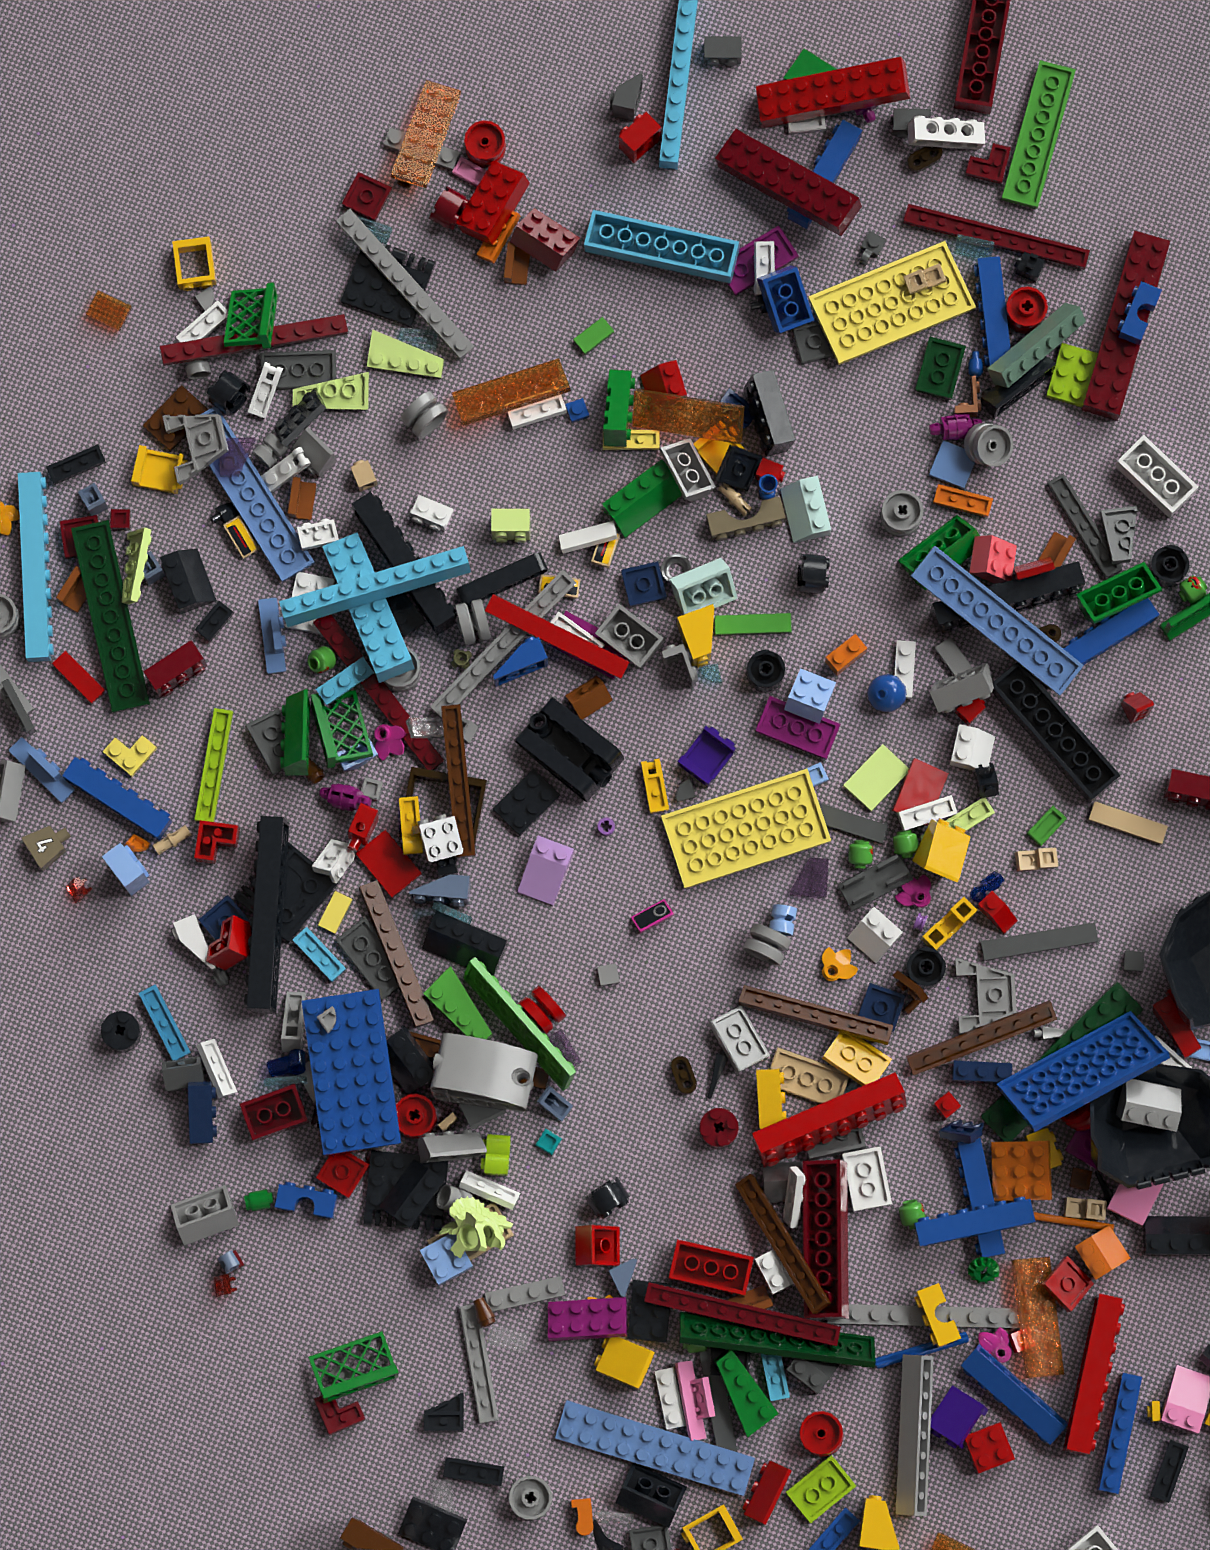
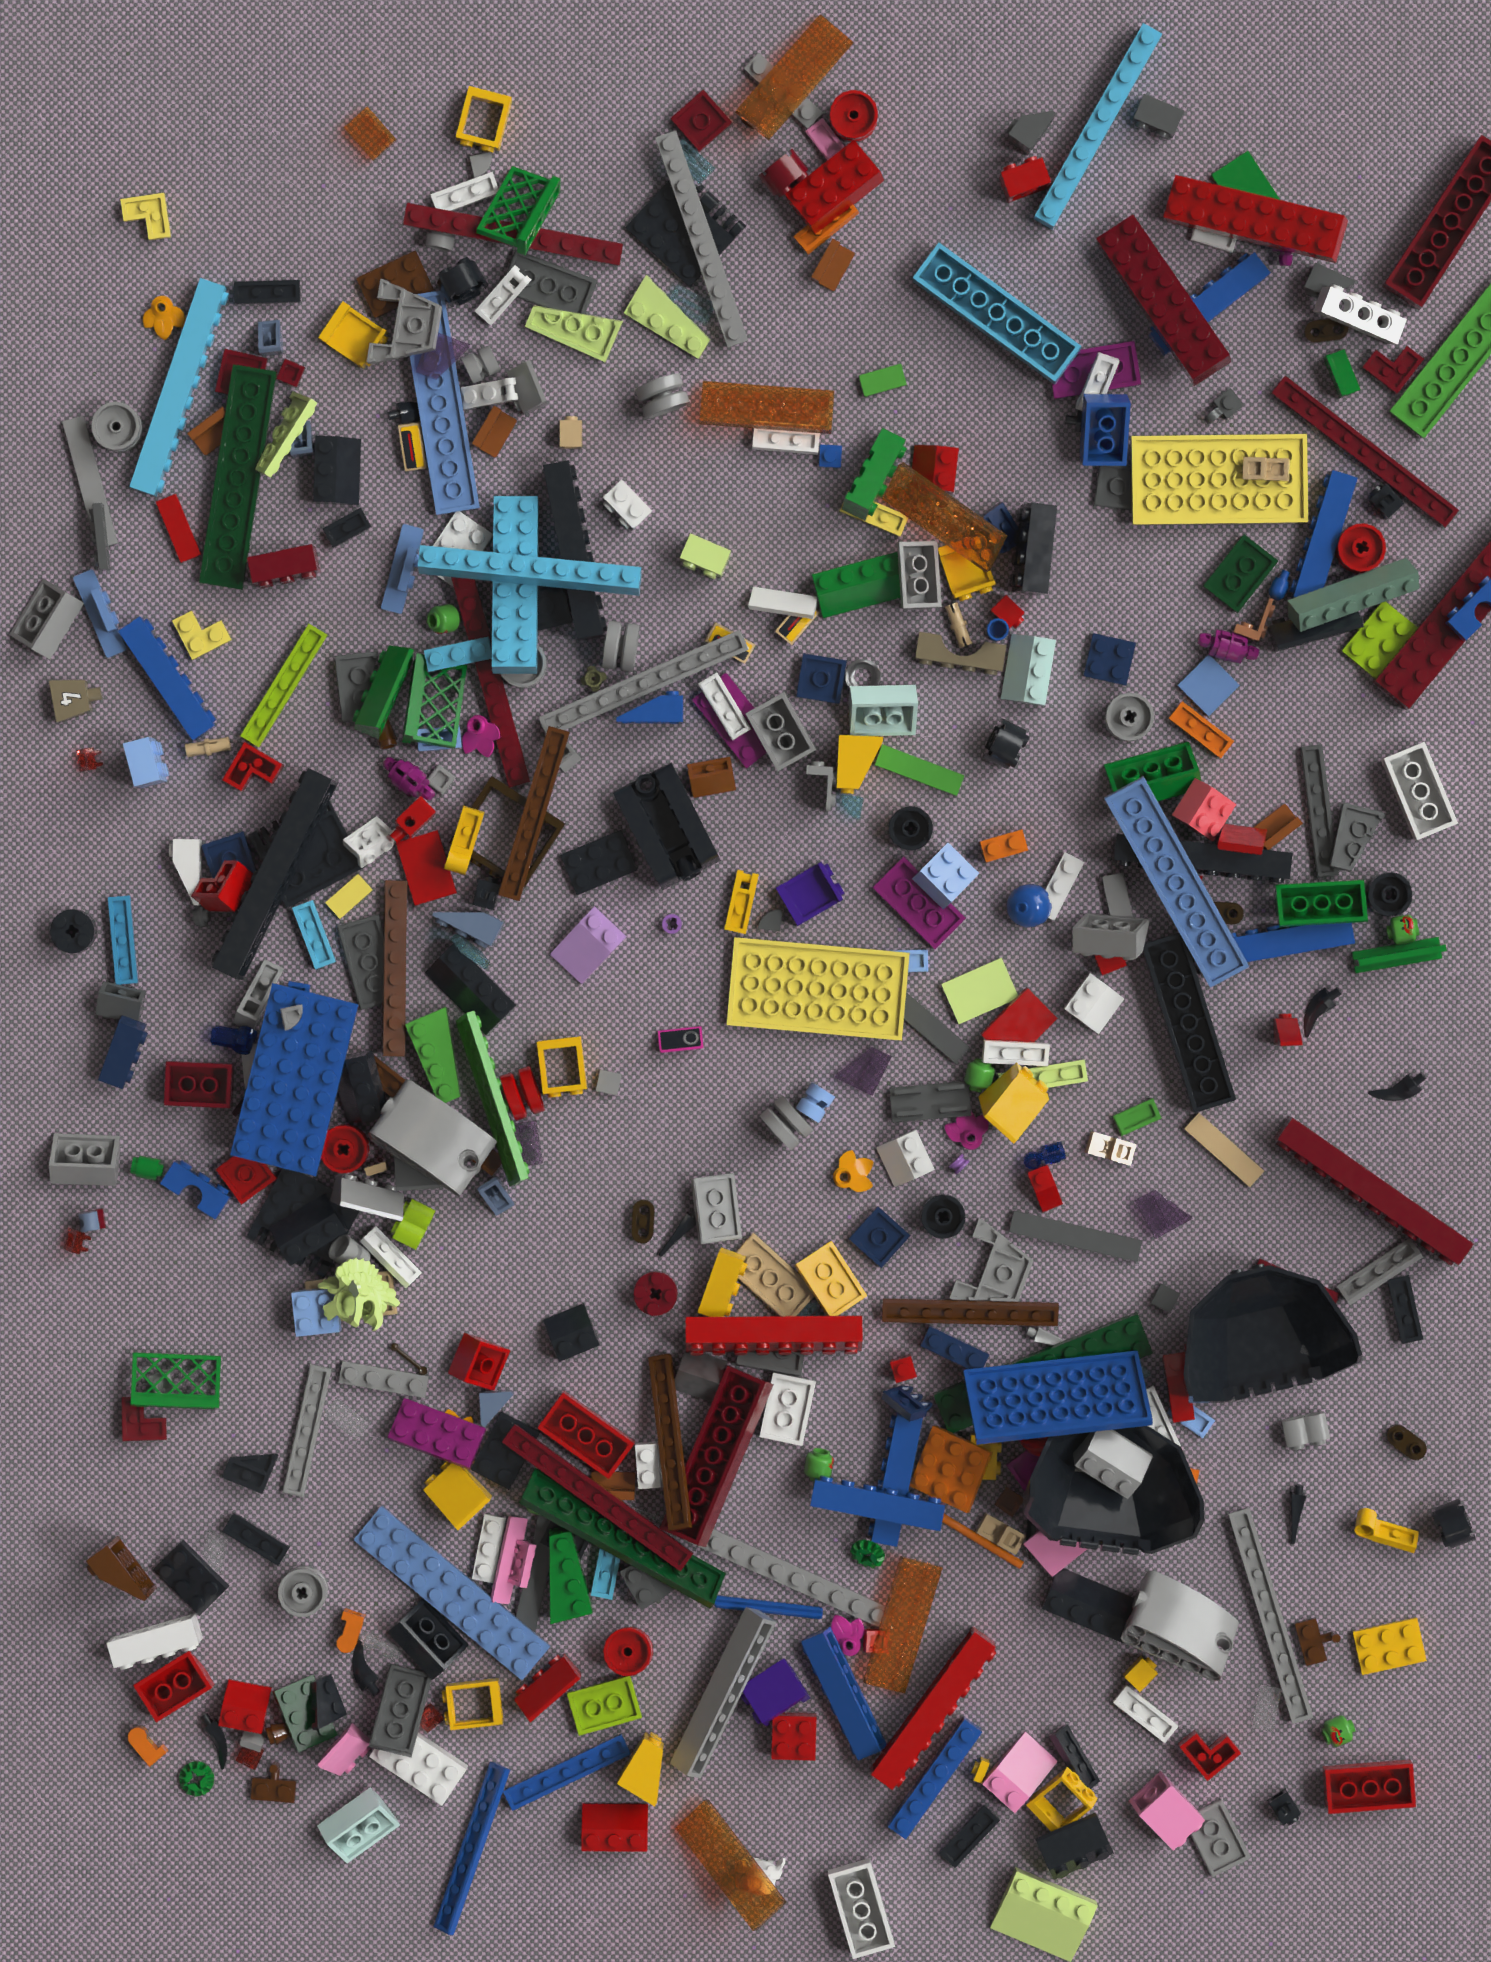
camera: 20 degrees right, 10 degrees up
(137, 844) = (168, 736): orange tile -> none
(216, 1068) = (158, 1011): white plate -> none
(288, 1080) = (224, 1055): clear light blue tile -> none
(299, 417) = (526, 343): black plate -> none
(317, 534) = (494, 479): white bracket -> none
(425, 727) = (523, 739): clear plate -> none
(439, 837) = (488, 868): bracket -> none
(484, 1314) = (332, 1382): reddish brown cone -> none
(503, 579) = (672, 610): black beam -> none
(545, 239) = (873, 253): dark red brick -> none
(548, 1141) = (473, 1231): teal tile -> none
(554, 1273) = (422, 1369): none -> dark brown hinge
(555, 959) = (560, 1043): none -> yellow window
(557, 636) = (703, 700): red tile -> none
(607, 1197) = (509, 1318): black brick -> none
(663, 1190) = (571, 1332): none -> black slope
(738, 468) = (975, 595): black tile -> none
(794, 1197) = (702, 1398): white plate -> none
(815, 1015) = (806, 1217): reddish brown plate -> none
(860, 853) = (927, 1065): bright green head -> none
(866, 476) = (1109, 659): none -> dark blue plate
(912, 989) = (919, 1238): reddish brown plate -> none
(942, 1332) = (797, 1562): yellow arch -> none
(949, 924) = (987, 1180): yellow arch -> none
(951, 185) = (1341, 373): none -> green panel
(973, 247) = (1335, 454): clear light blue tile -> none
(986, 781) = (1093, 1045): black brick -> none
(988, 444) = (1254, 682): light grey wheel -> none
(1067, 1284) = (948, 1604): red plate -> none
(1099, 894) = (1160, 1213): none -> clear purple wing
(1102, 1252) = (998, 1587): orange slope -> none
(1152, 677) = (1319, 1005): none -> black bar

